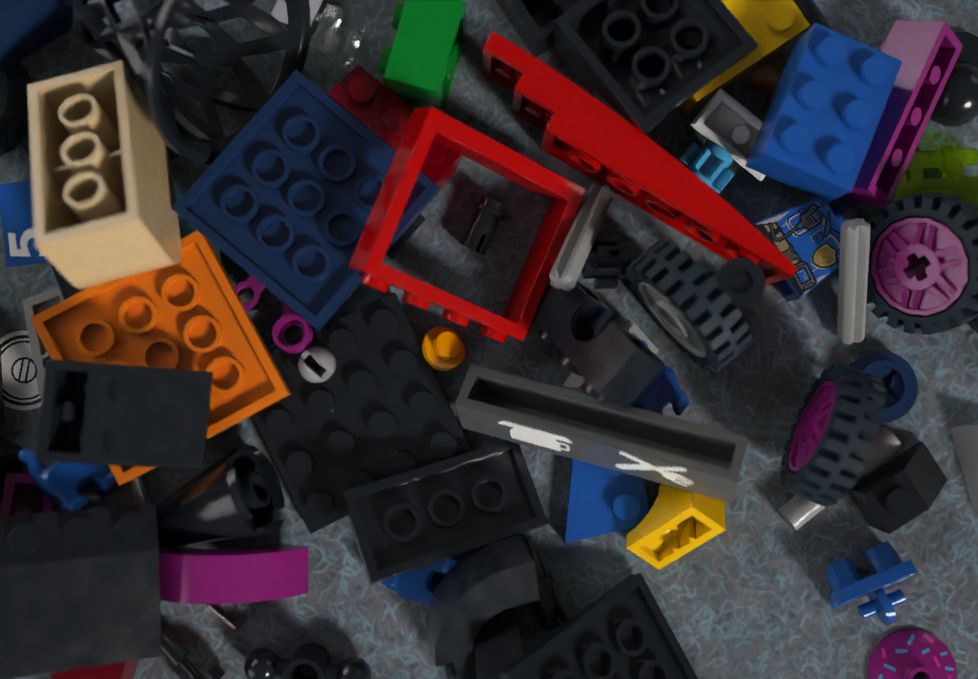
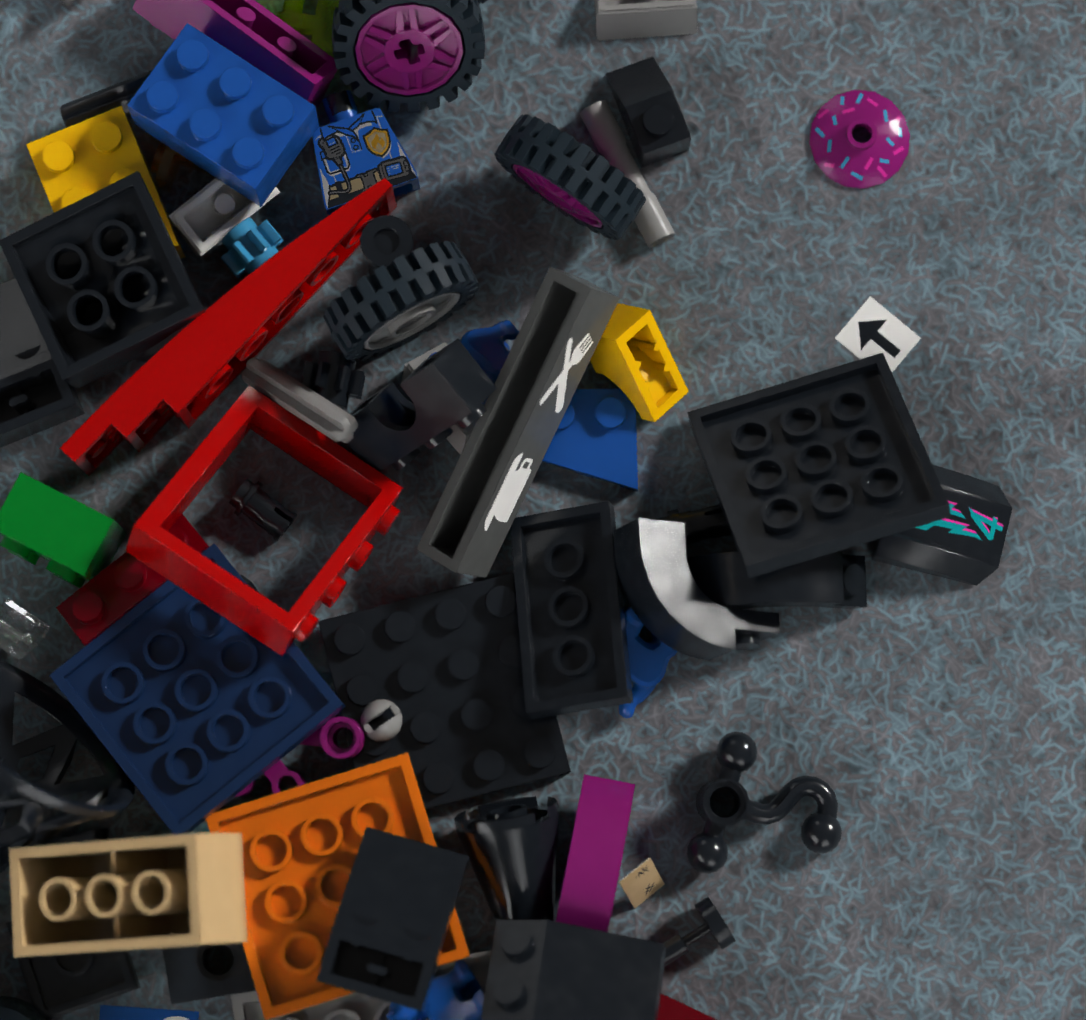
camera: 75 degrees left, 5 degrees down
(443, 348) = (393, 580): light orange plate -> none
(853, 280) = (412, 117): light grey axle -> none
(887, 571) = (740, 144): blue hips -> none
(900, 381) = (538, 85): dark blue gear -> none

